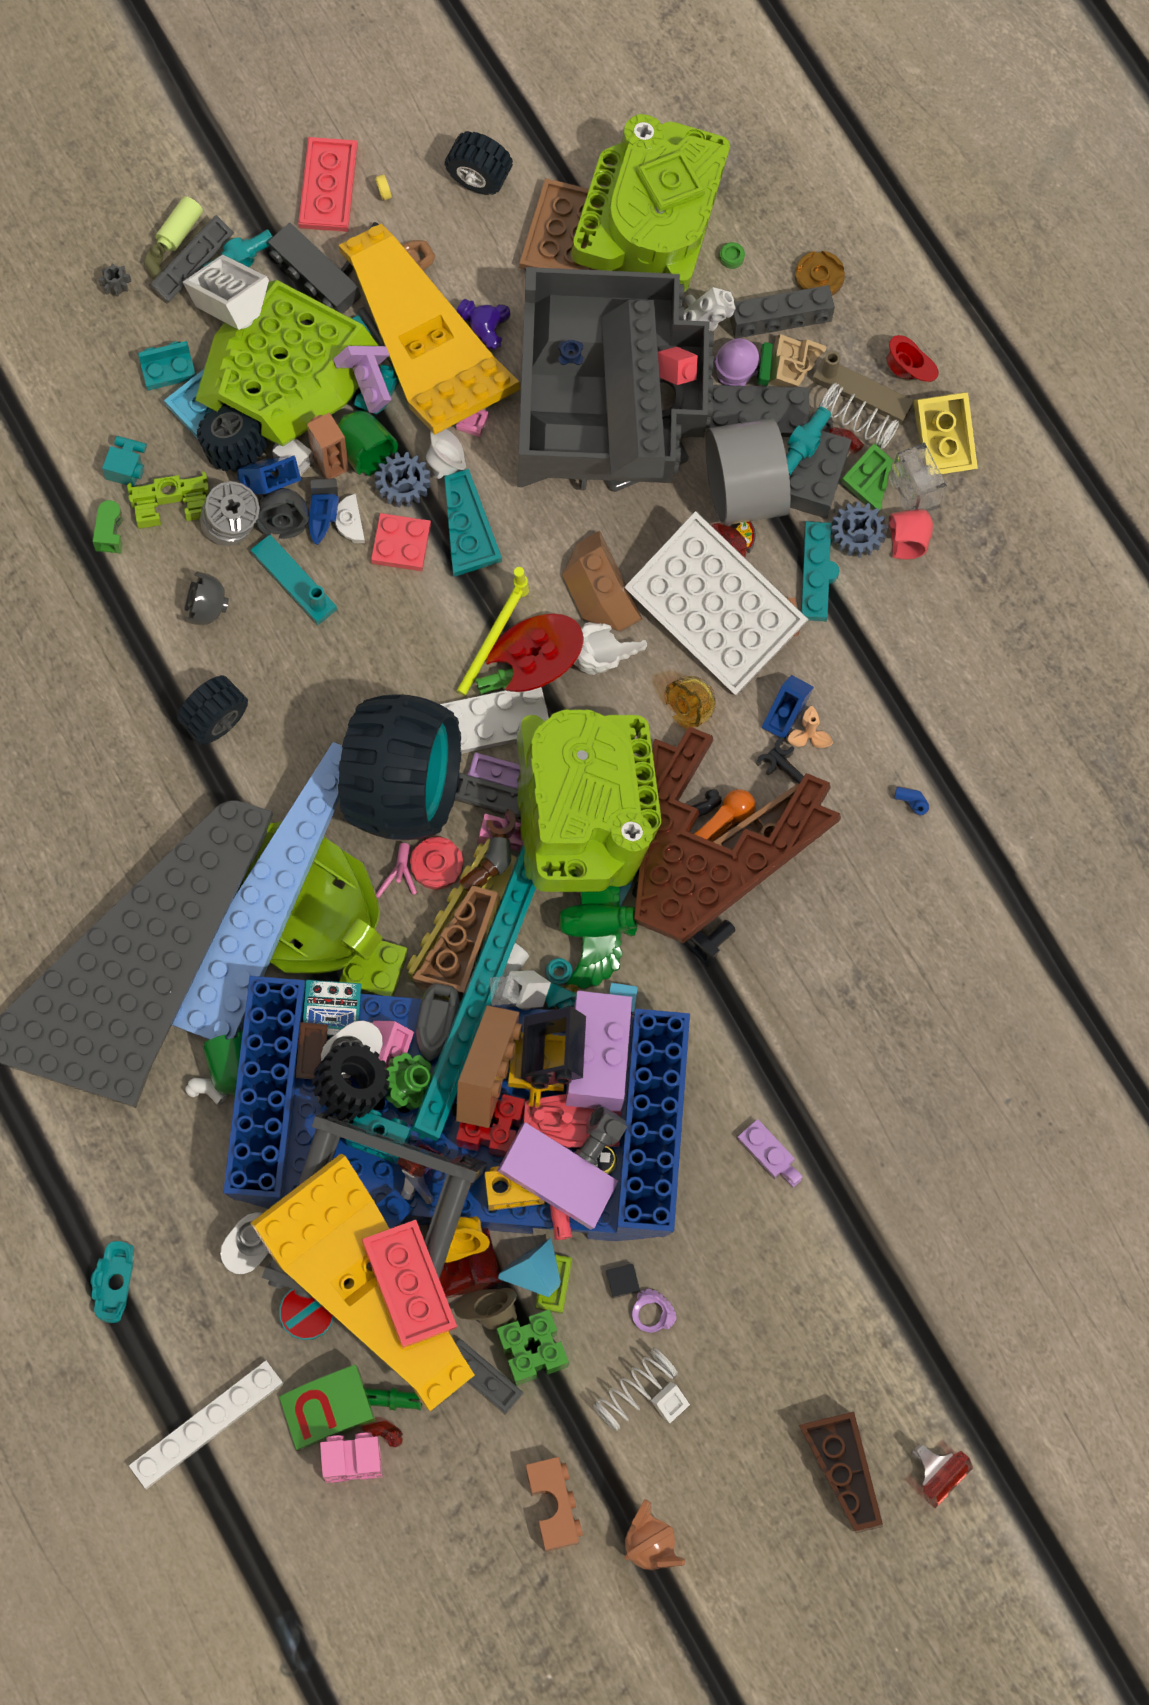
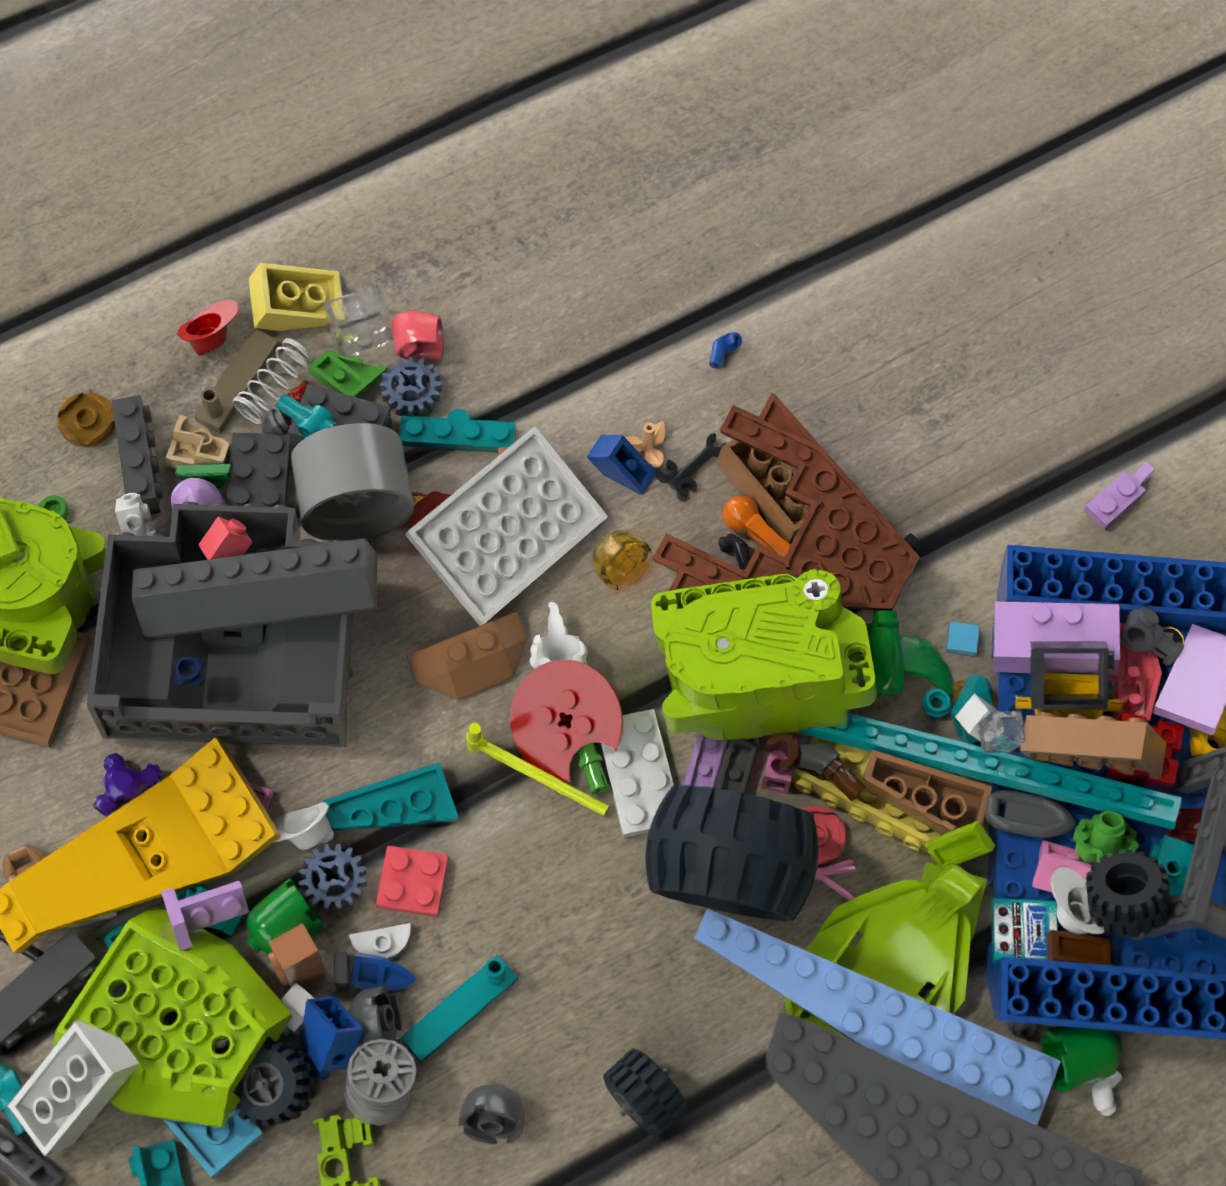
camera: 90 degrees left, 5 degrees down
(412, 965) = (960, 845): none -> lime tile

